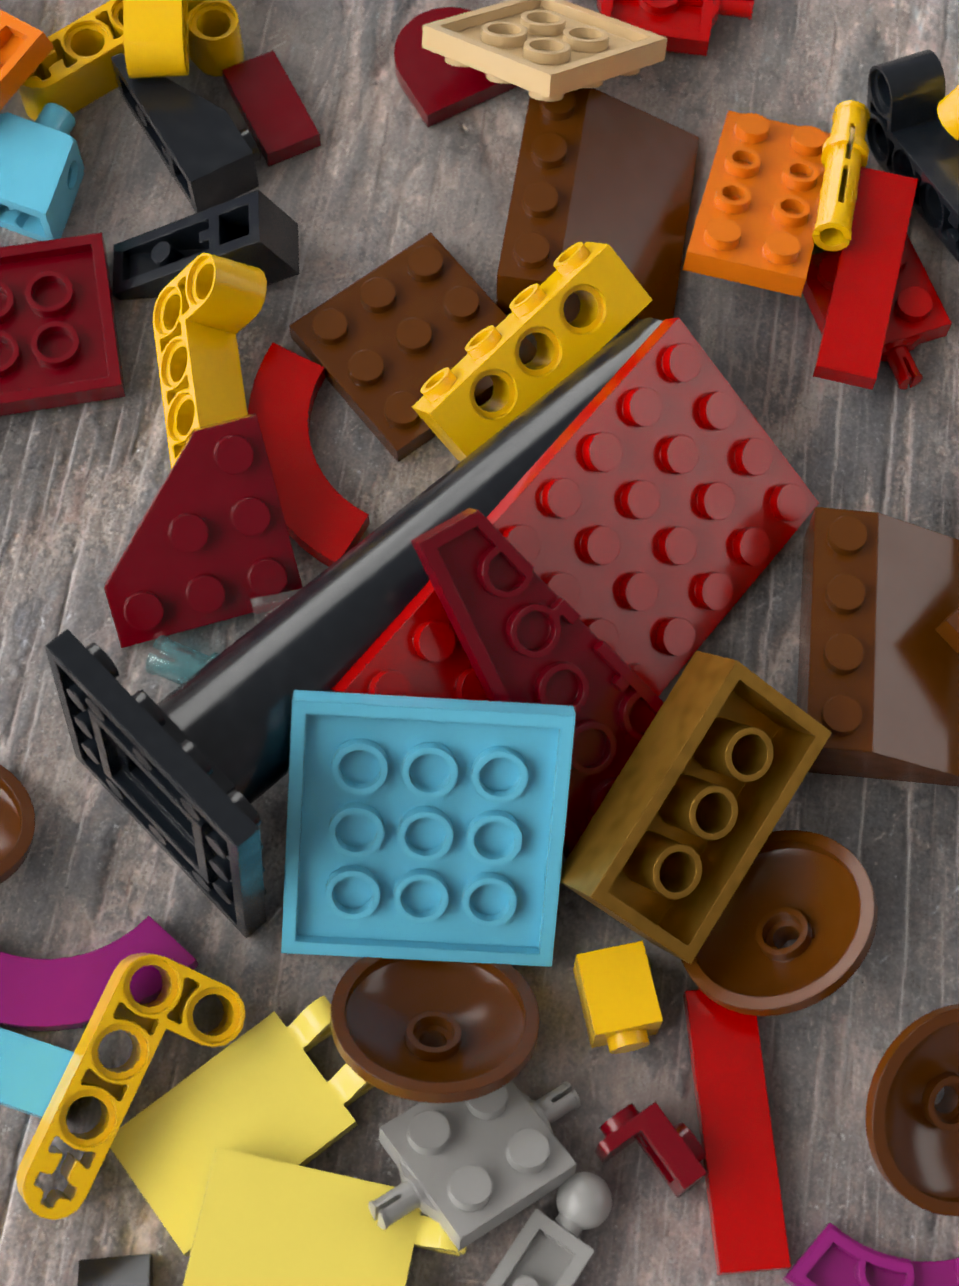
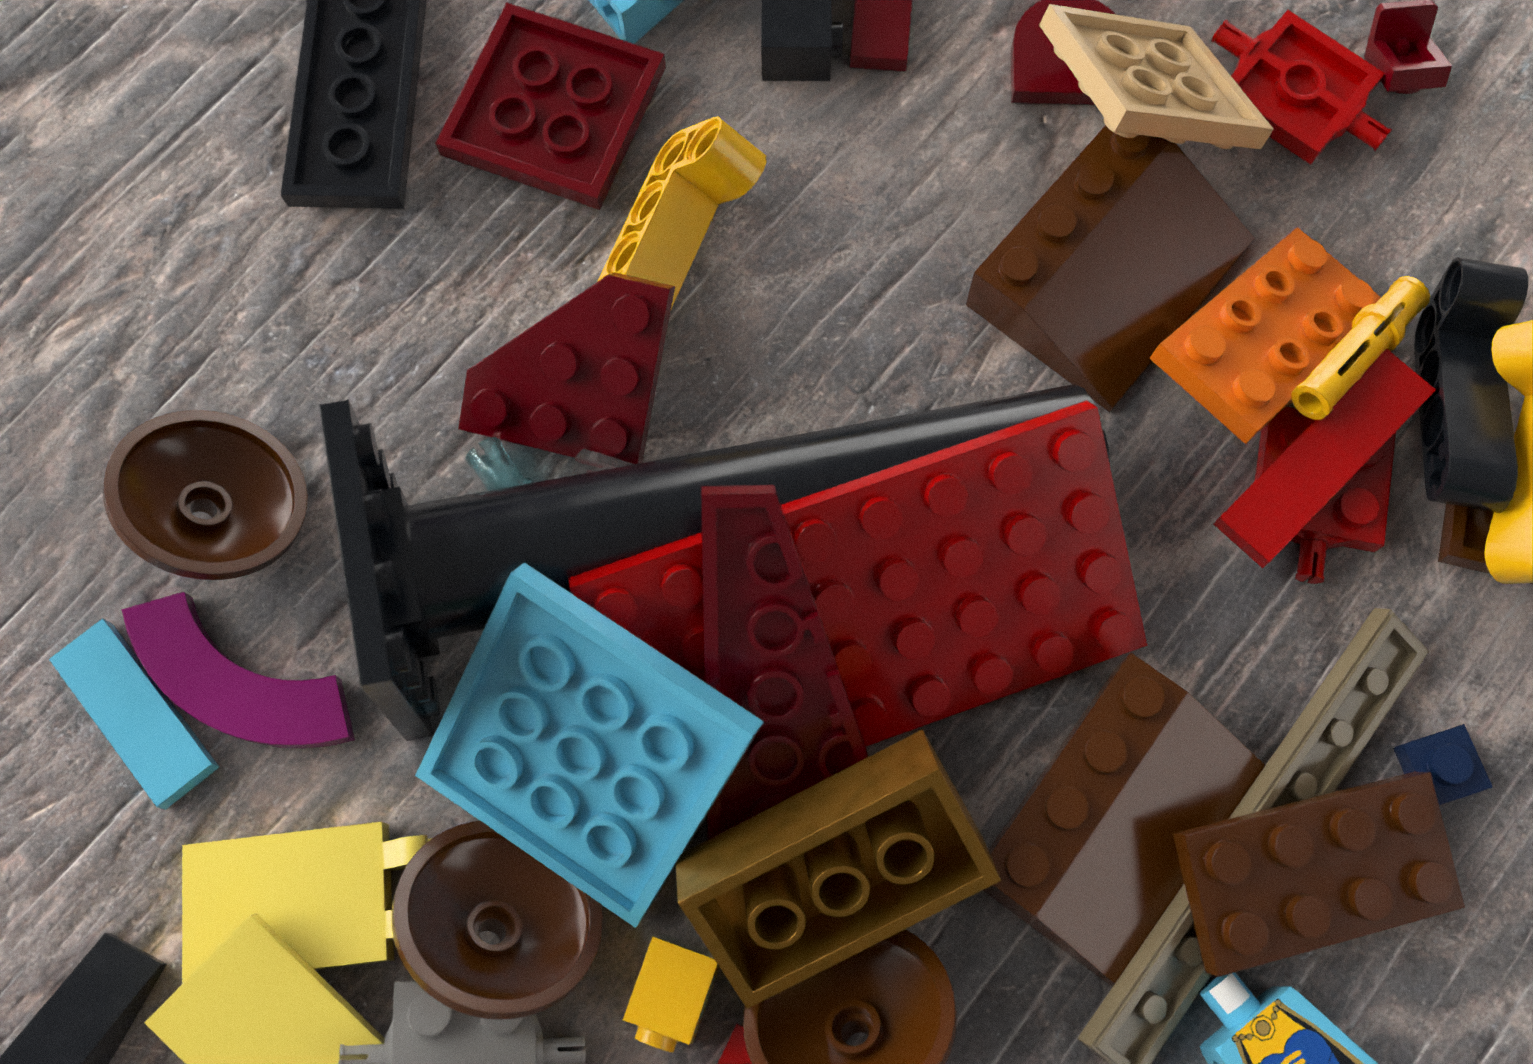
camera: 35 degrees right, 5 degrees up
(117, 1085) = (208, 804): yellow beam -> none
(241, 230) = (770, 114): black slope -> none
(311, 507) = (696, 338): red tile -> none
(396, 333) = (873, 297): reddish brown plate -> none
(608, 302) = (1058, 355): yellow brick -> none

